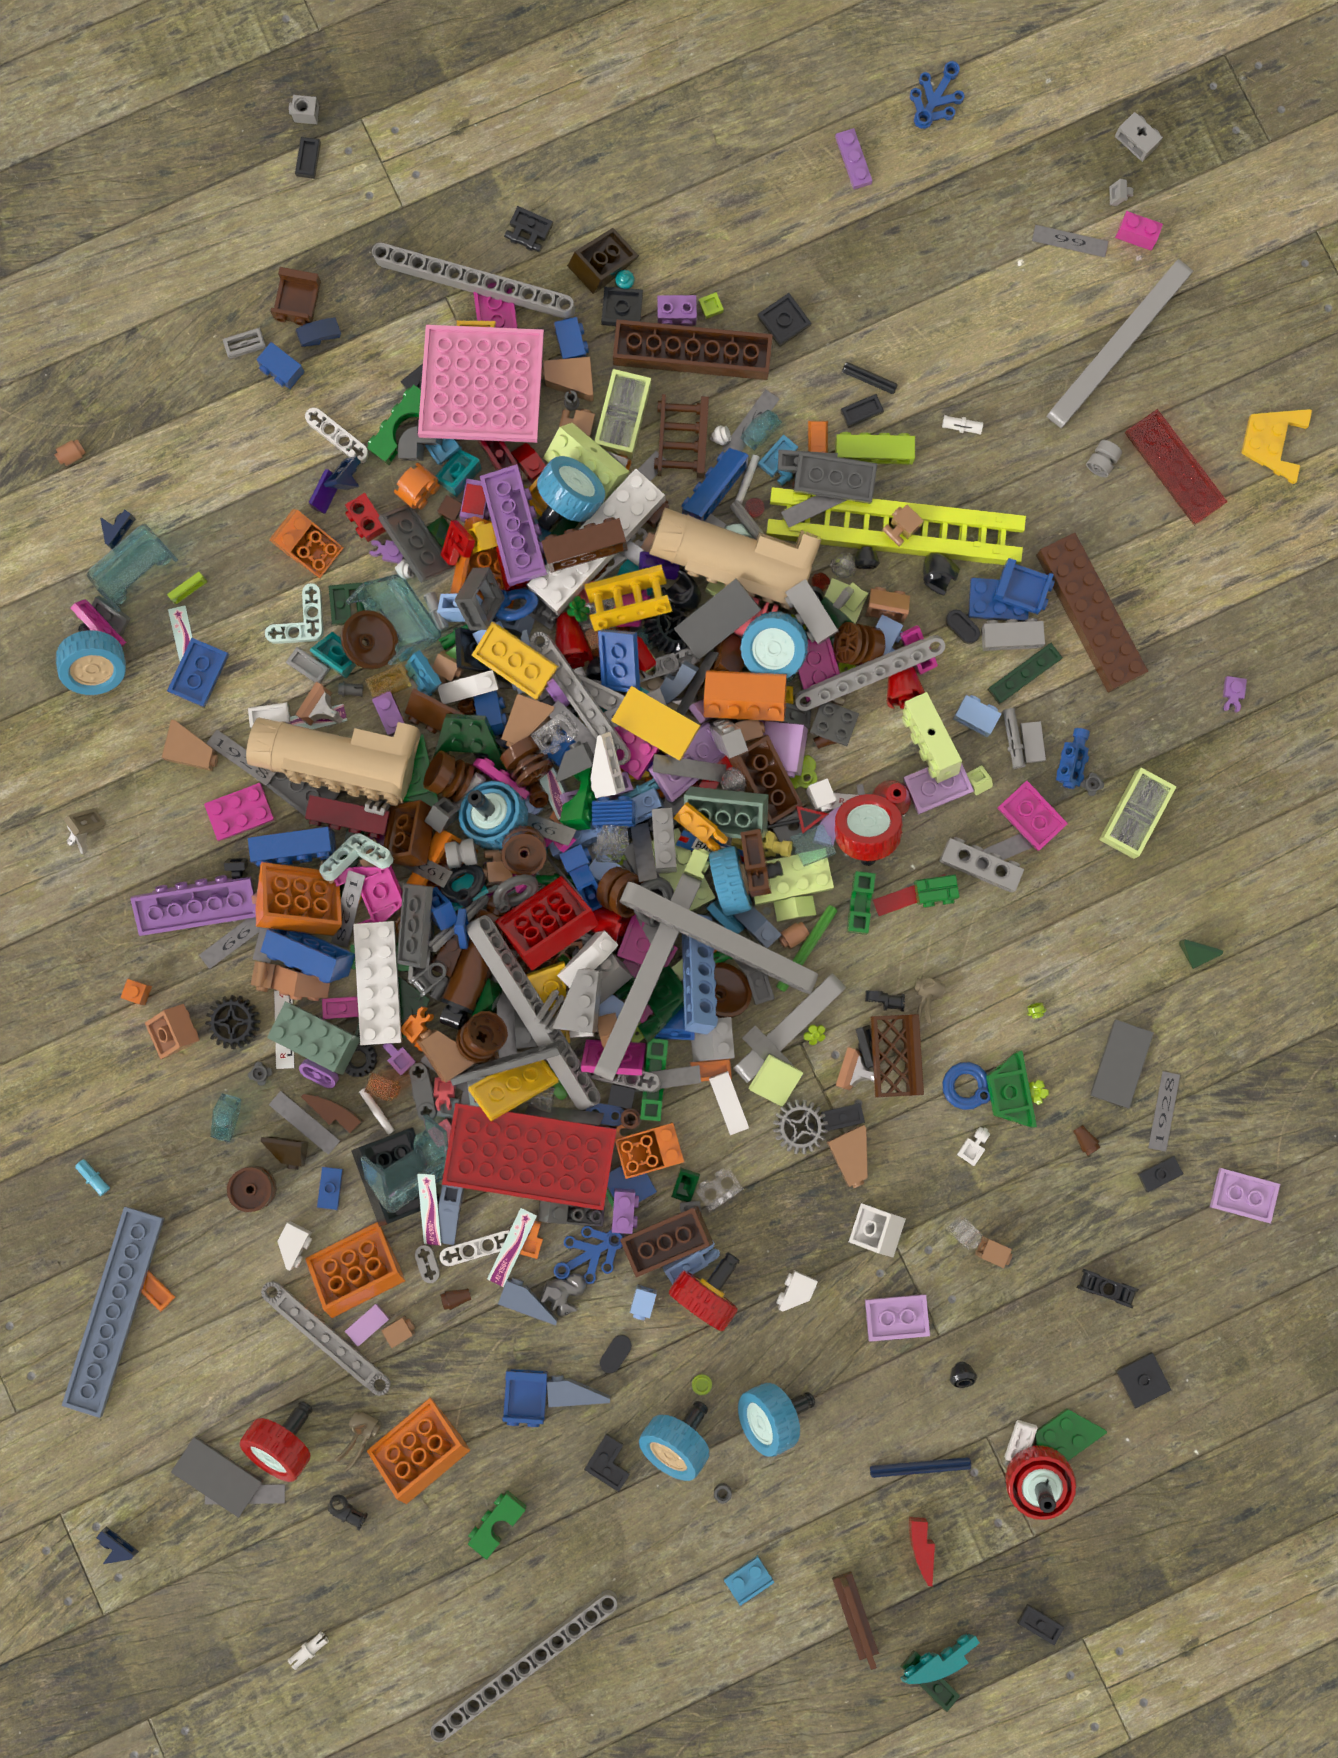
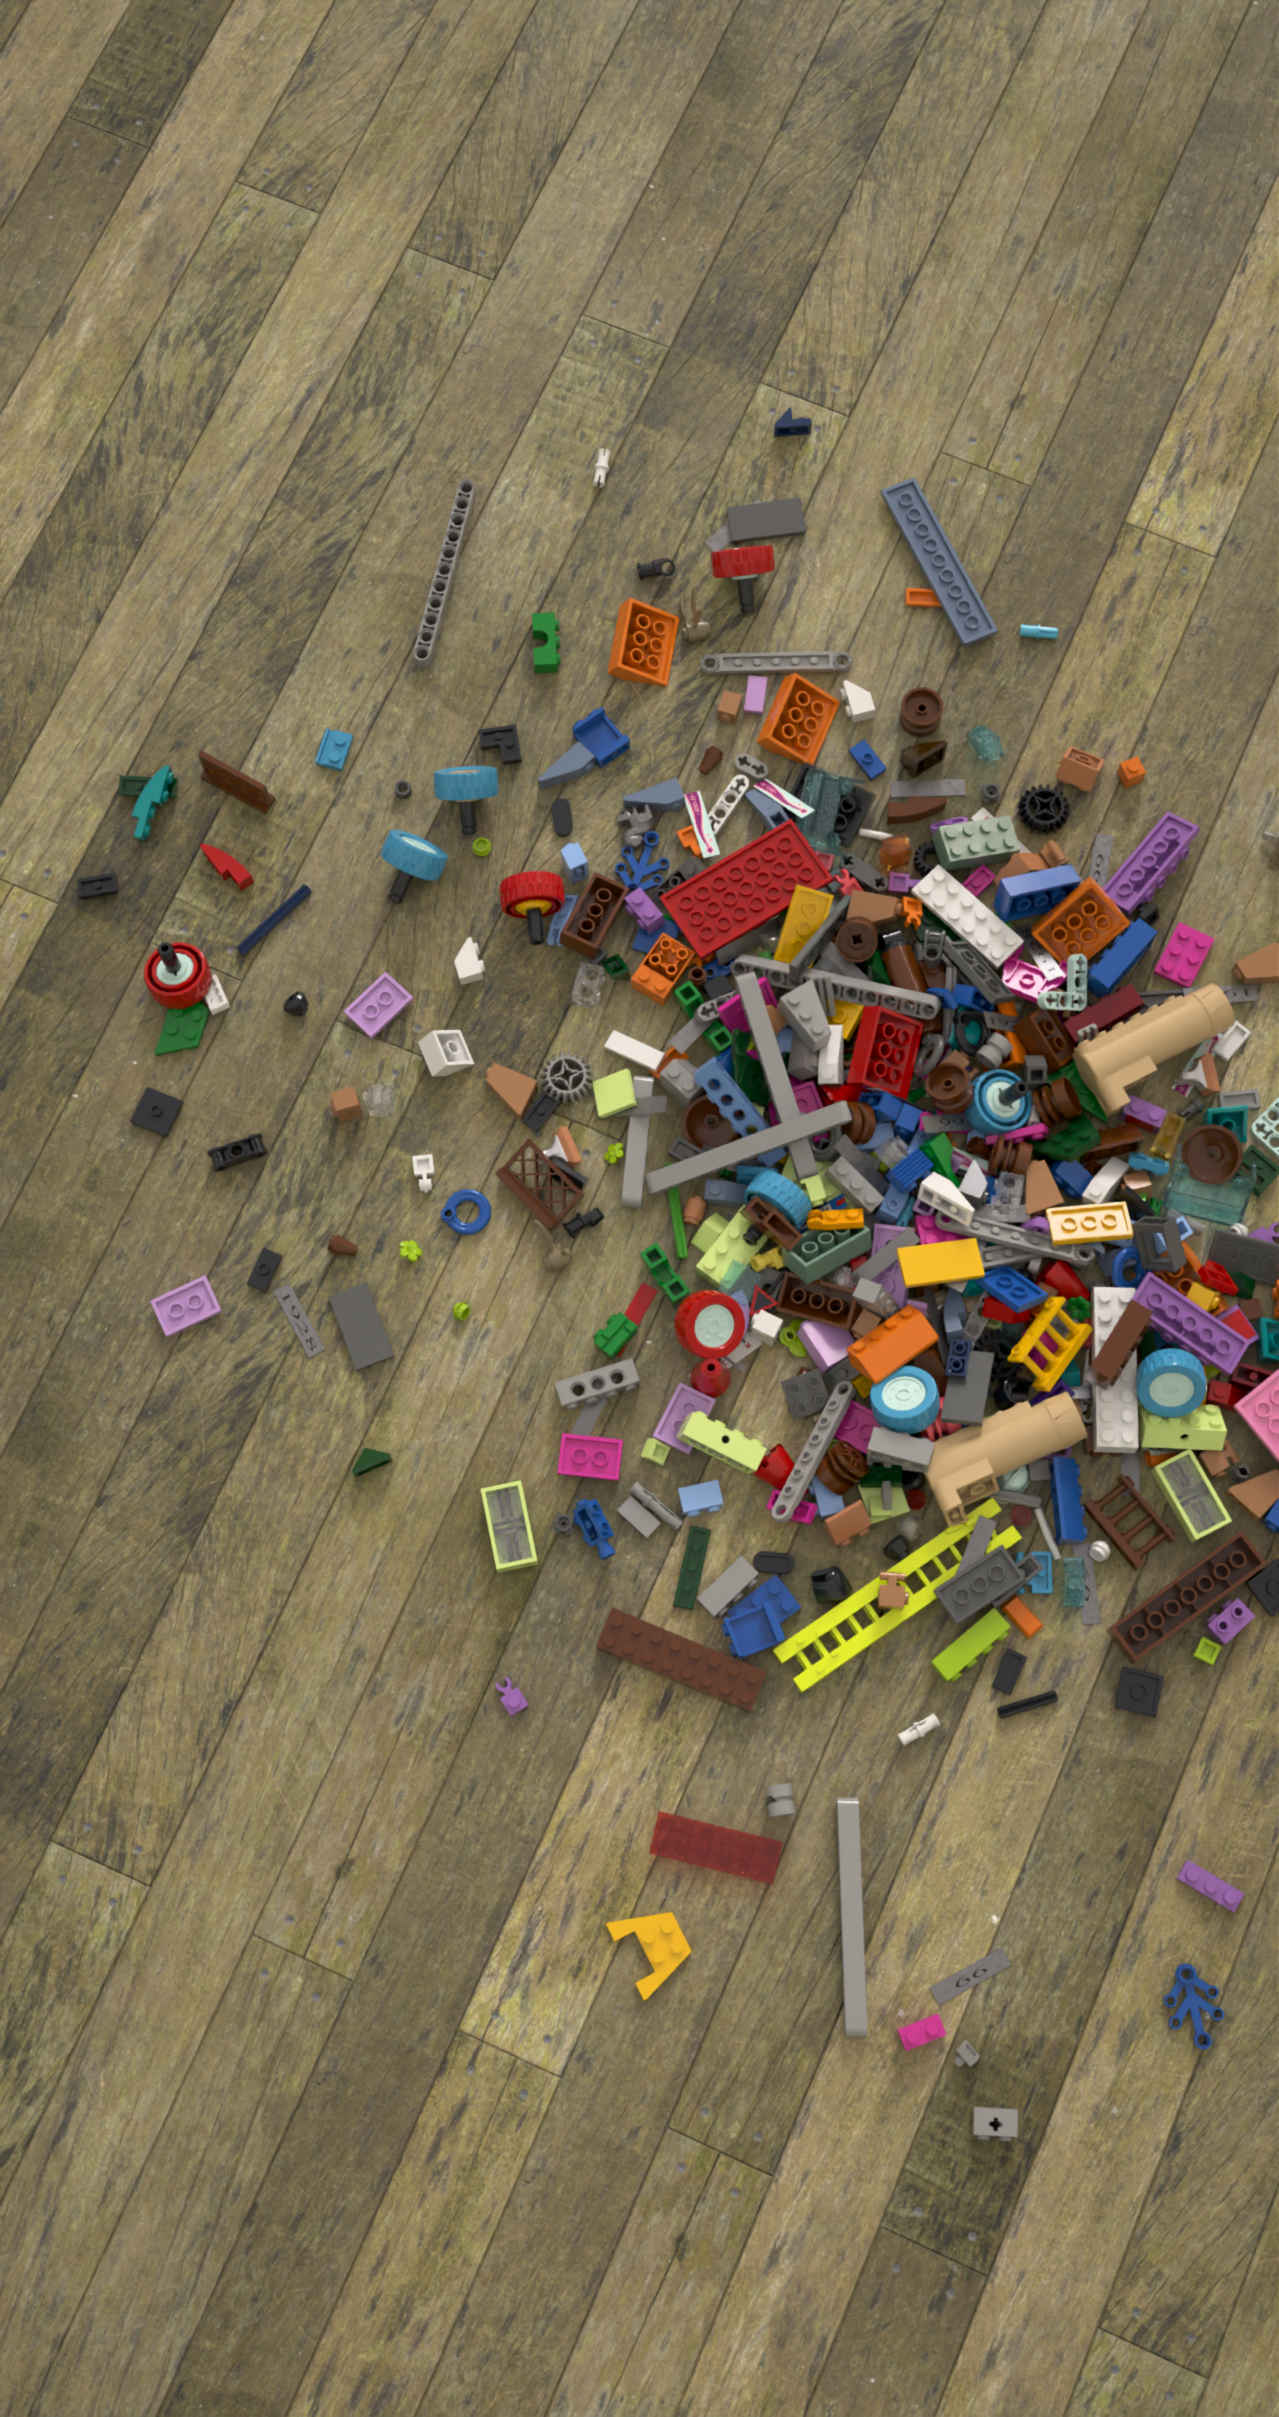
camera: 145 degrees right, 10 degrees down
(704, 645) = (958, 1358): none -> dark blue slope
(1011, 1091) = (429, 1233): green wing -> none

